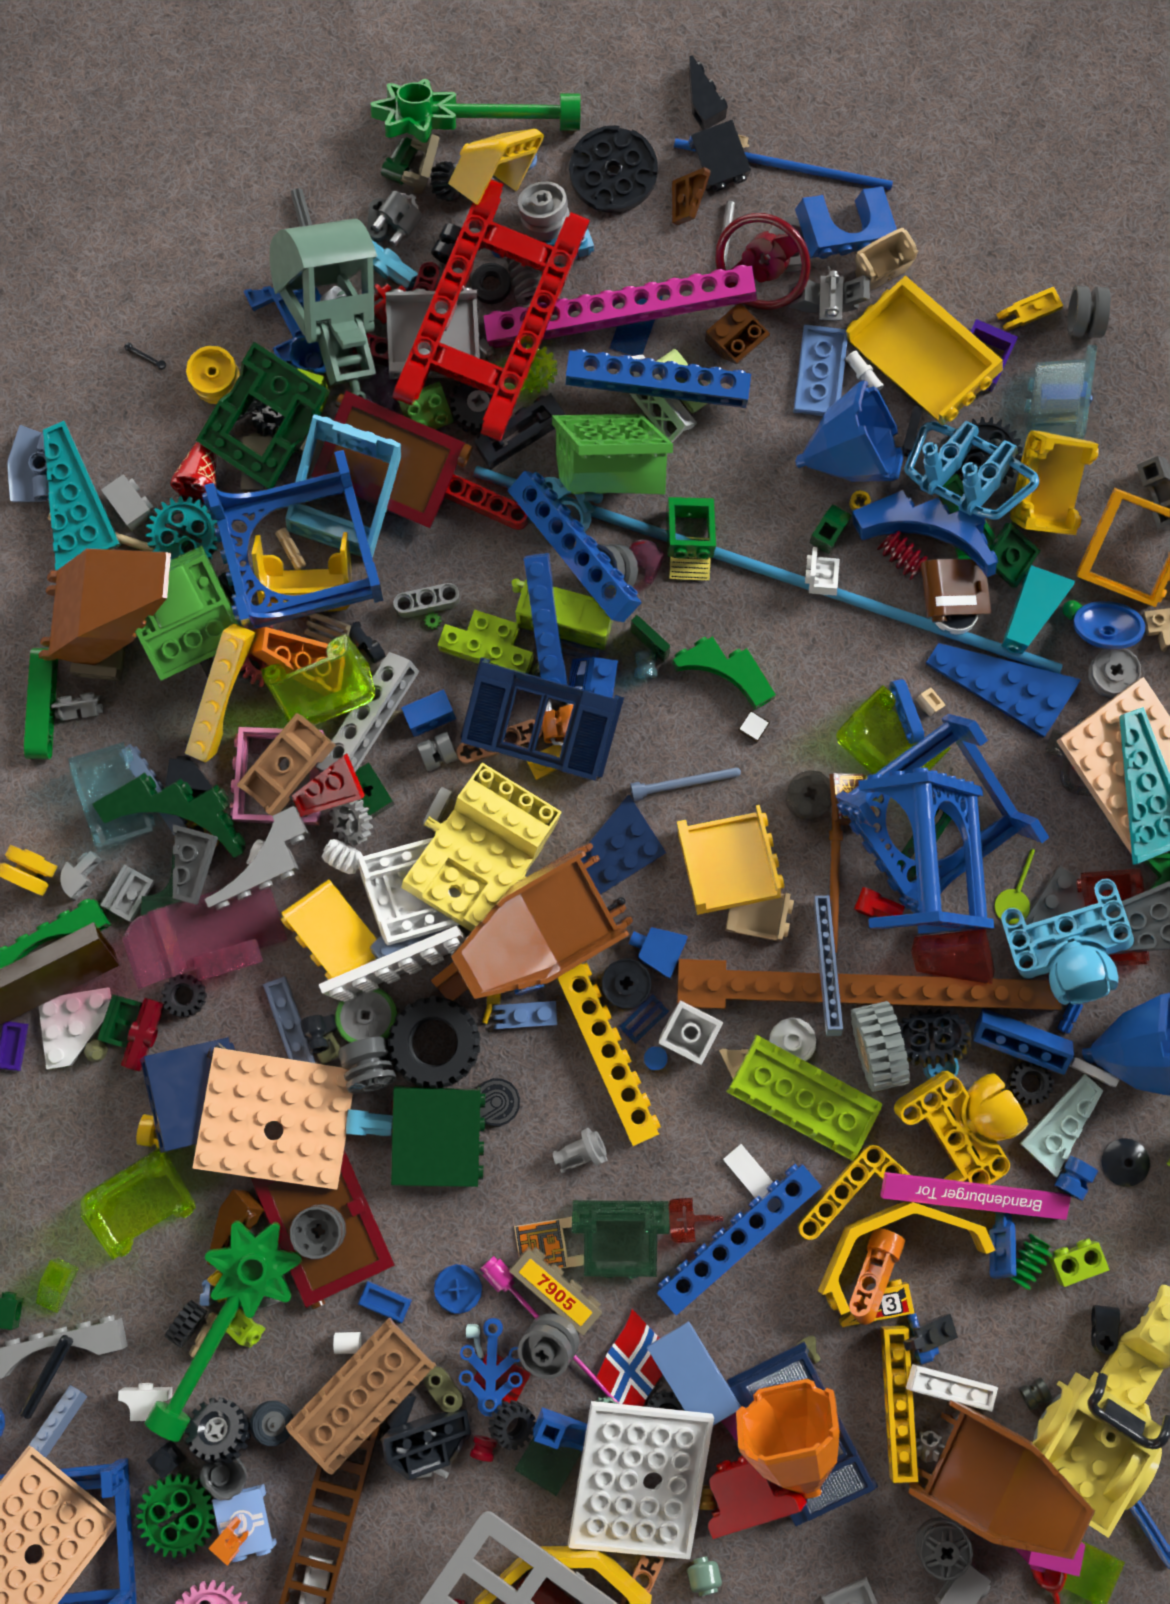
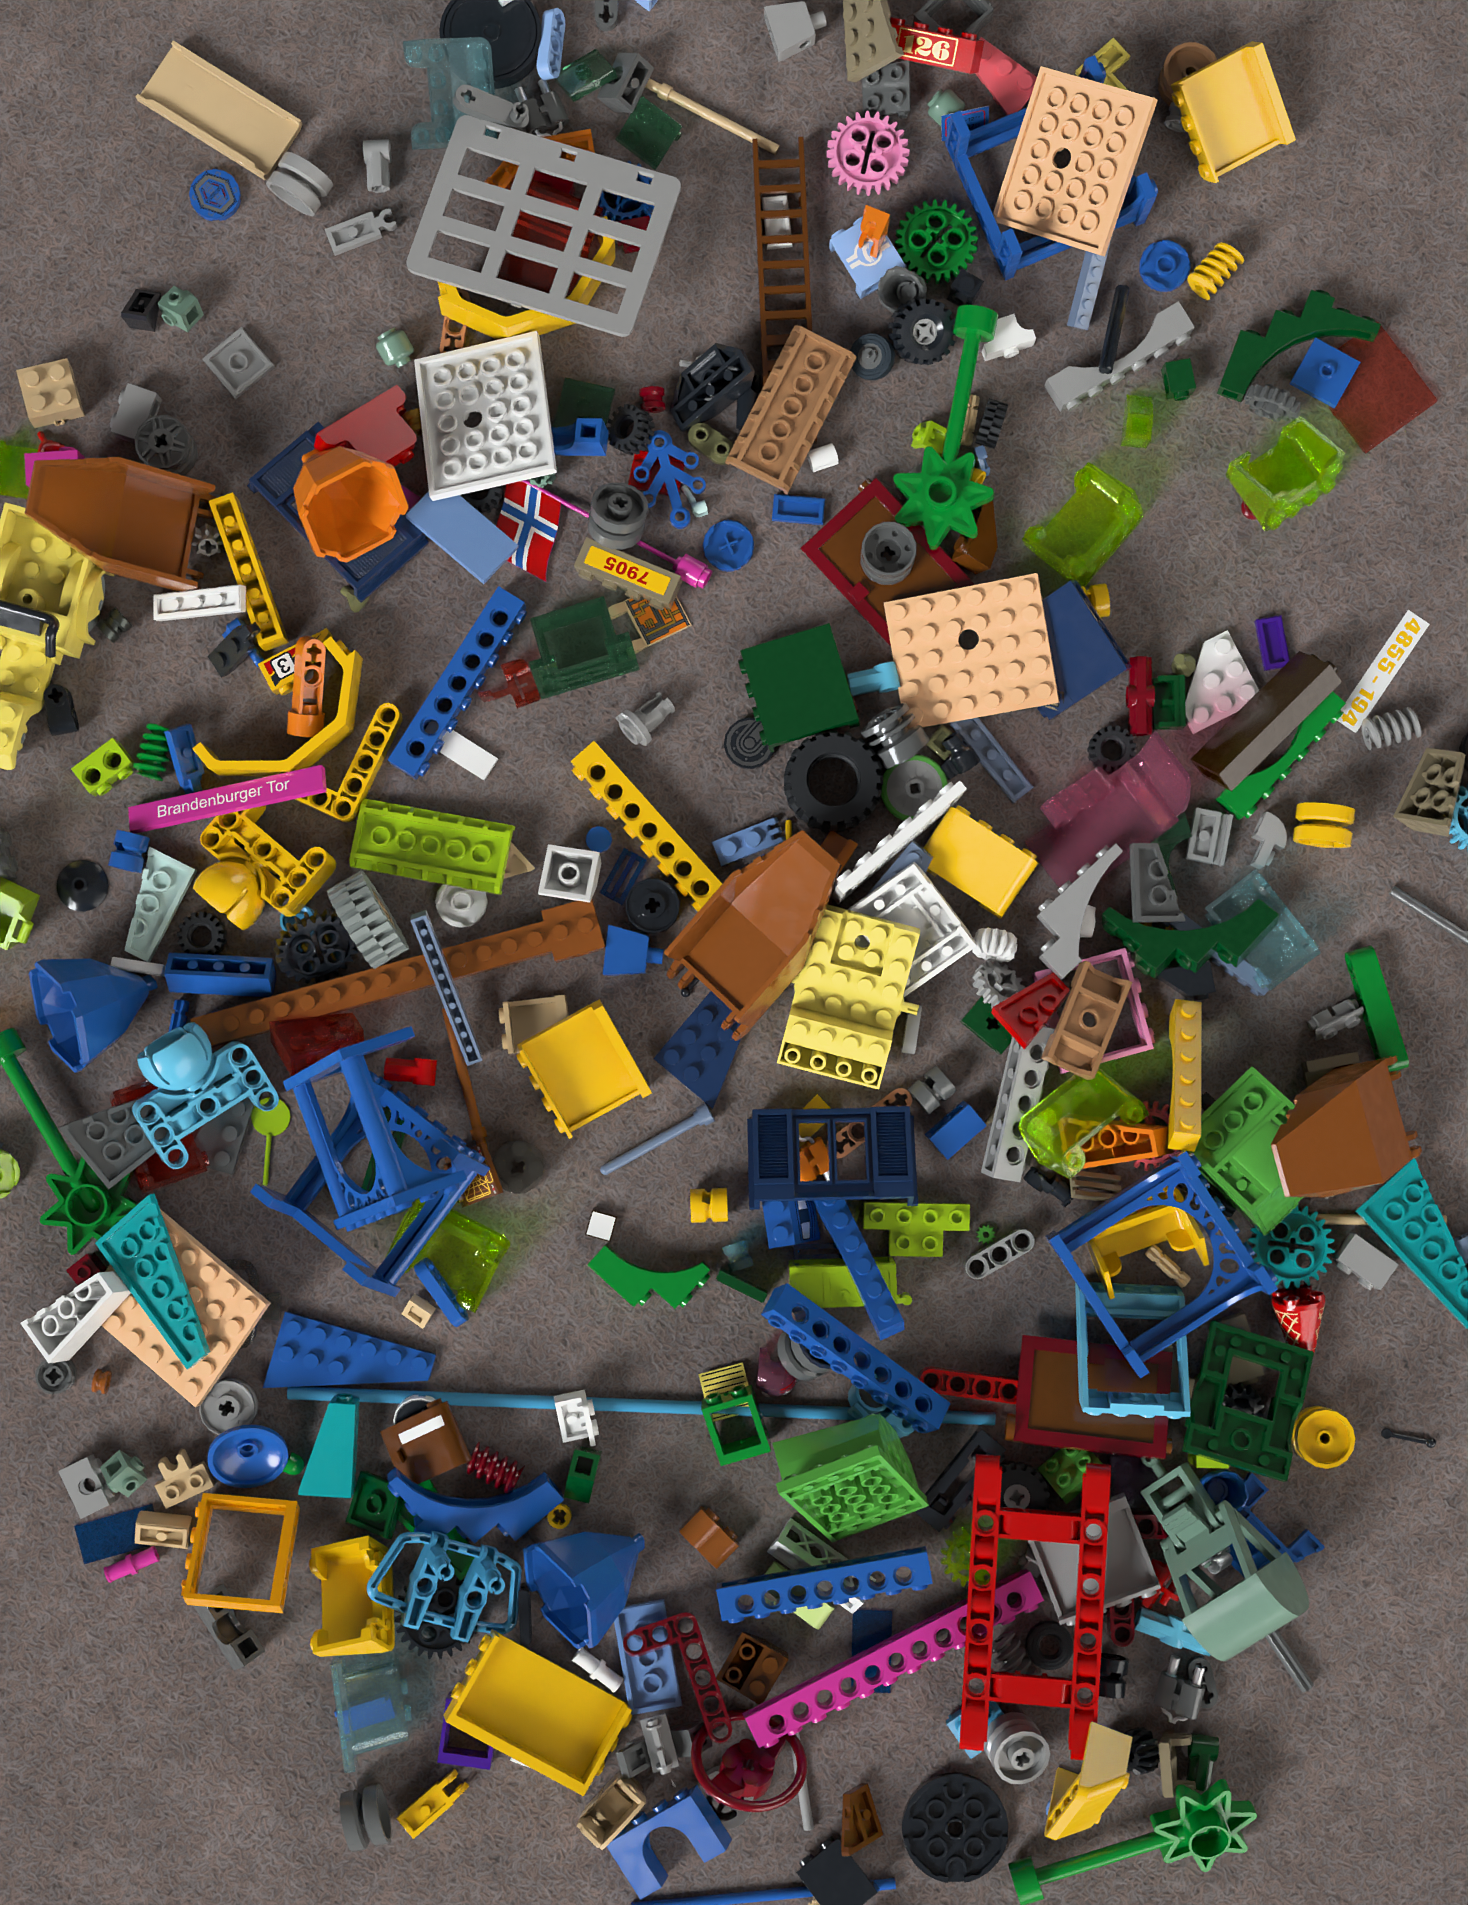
camera: 160 degrees right, 5 degrees up
(649, 710) = (708, 1205): none -> yellow wheel
(740, 447) = (709, 1536): none -> dark orange brick
(785, 348) = (692, 1665): none -> dark red beam

